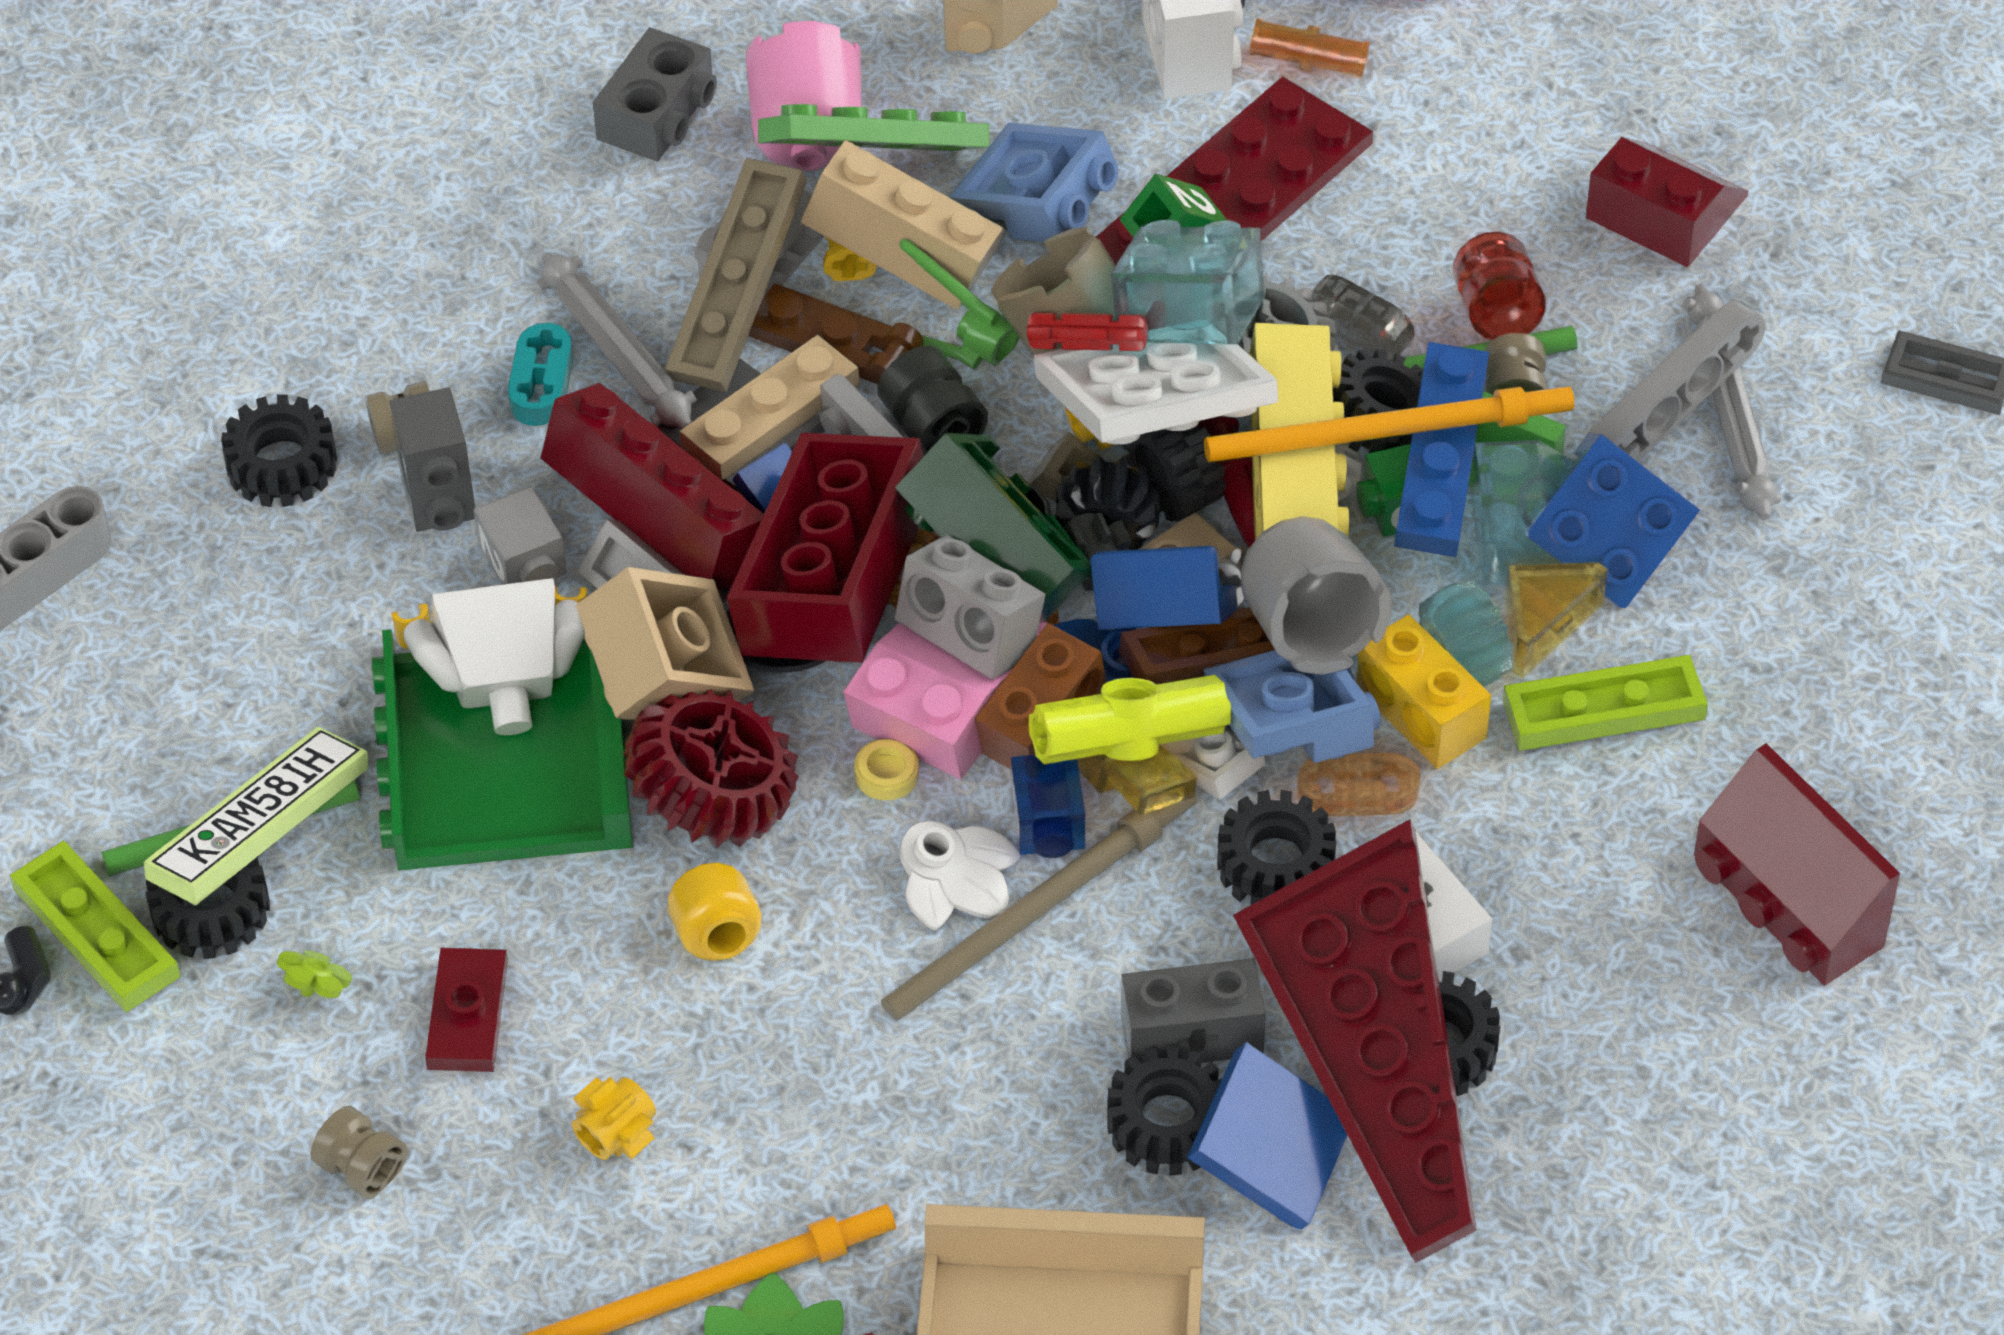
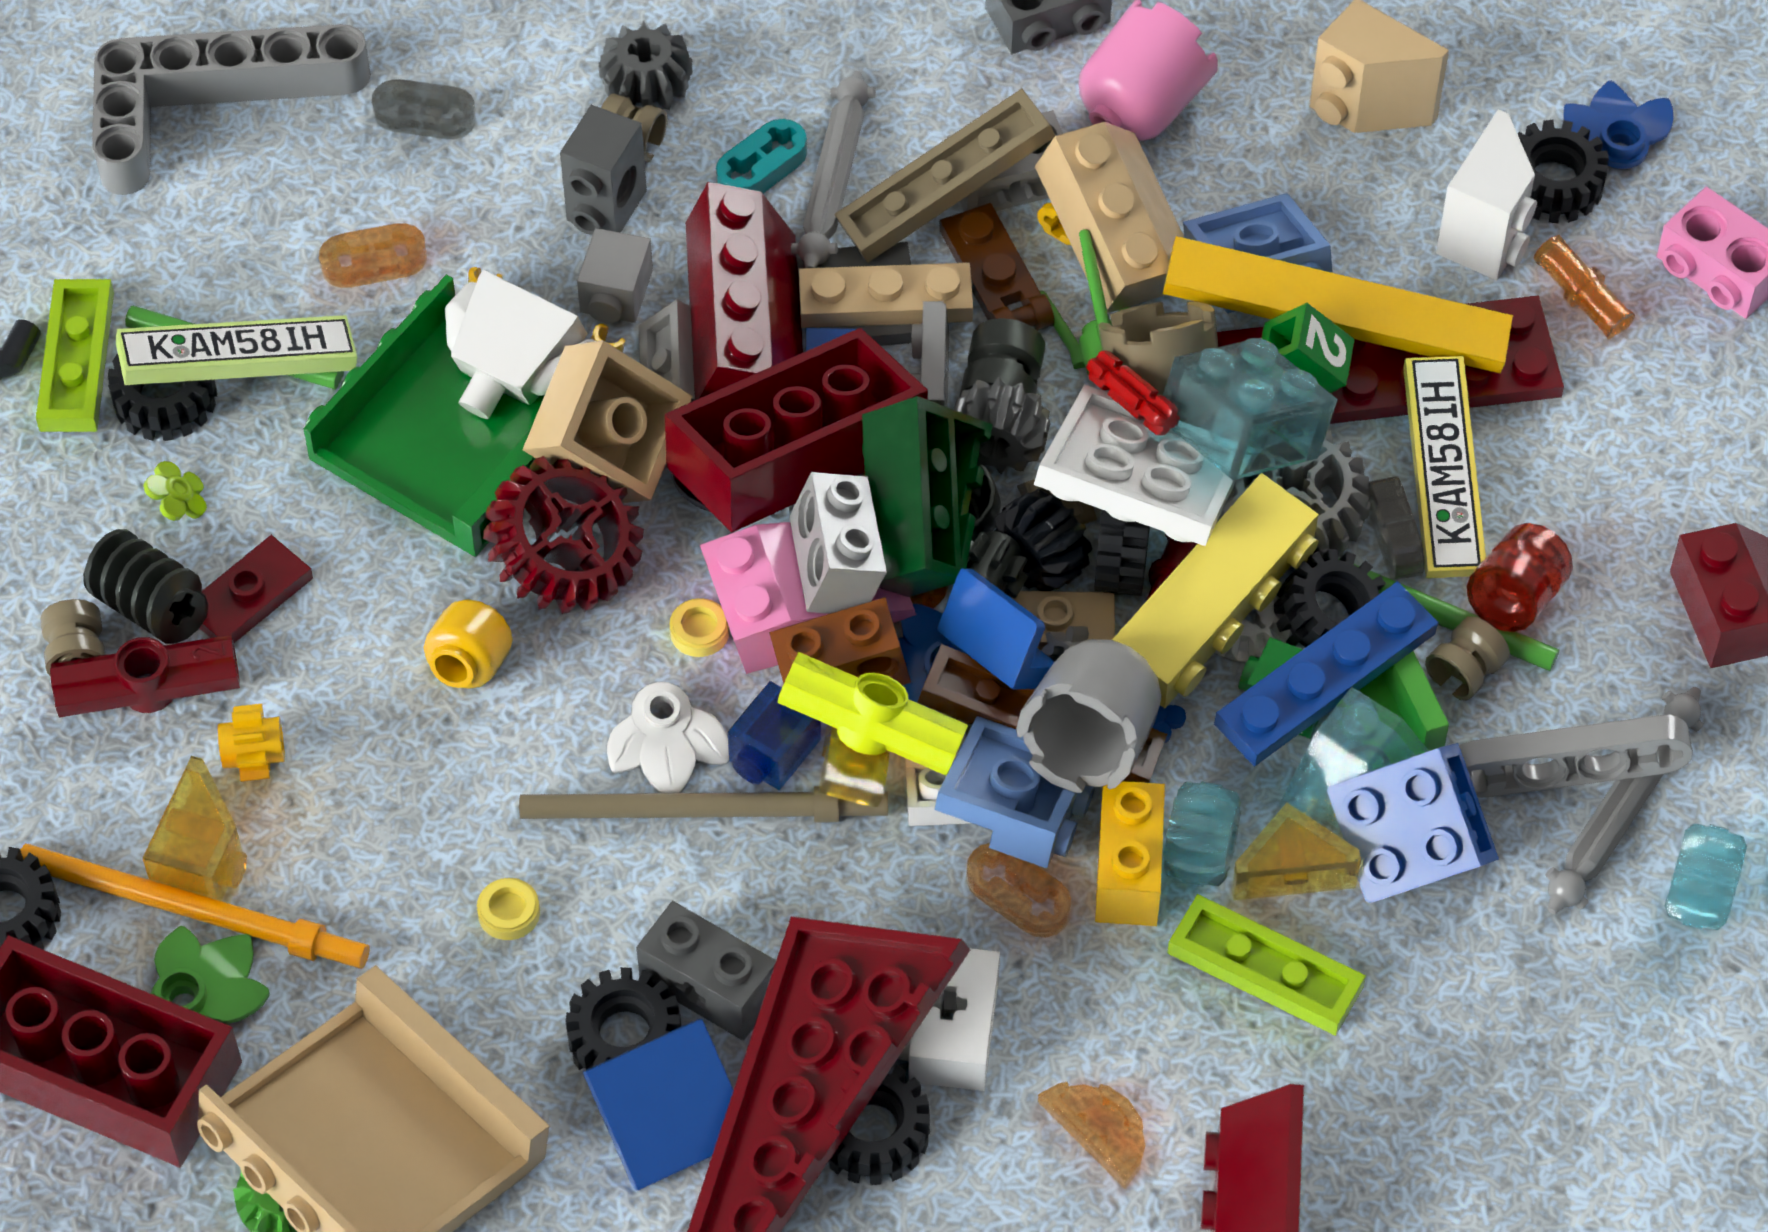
camera: 40 degrees right, 5 degrees up
(192, 522) = (424, 109): none -> clear smoke beam
(272, 663) = (373, 255): none -> clear orange beam
(283, 476) = (527, 119): black tyre -> none
(361, 359) = (646, 65): none -> dark grey gear
(384, 1060) = (146, 586): none -> pearl dark grey piece
(432, 1158) = (114, 678): none -> dark red piece
(651, 1222) = (196, 839): none -> clear yellow slope
(894, 129) = (1176, 141): bright green plate -> none
(967, 1094) = (508, 909): none -> light yellow tile
(993, 416) = (1017, 421): none -> dark grey gear
(1195, 156) = (1357, 306): none -> yellow tile
(1267, 821) = (909, 863): black tyre -> none
(1347, 241) = (1444, 466): none -> tile
(1506, 408) = (1394, 674): light orange bar -> none
(1607, 910) = (1101, 1124): none -> clear orange tile
(1858, 407) = (1705, 876): none -> clear light blue gear

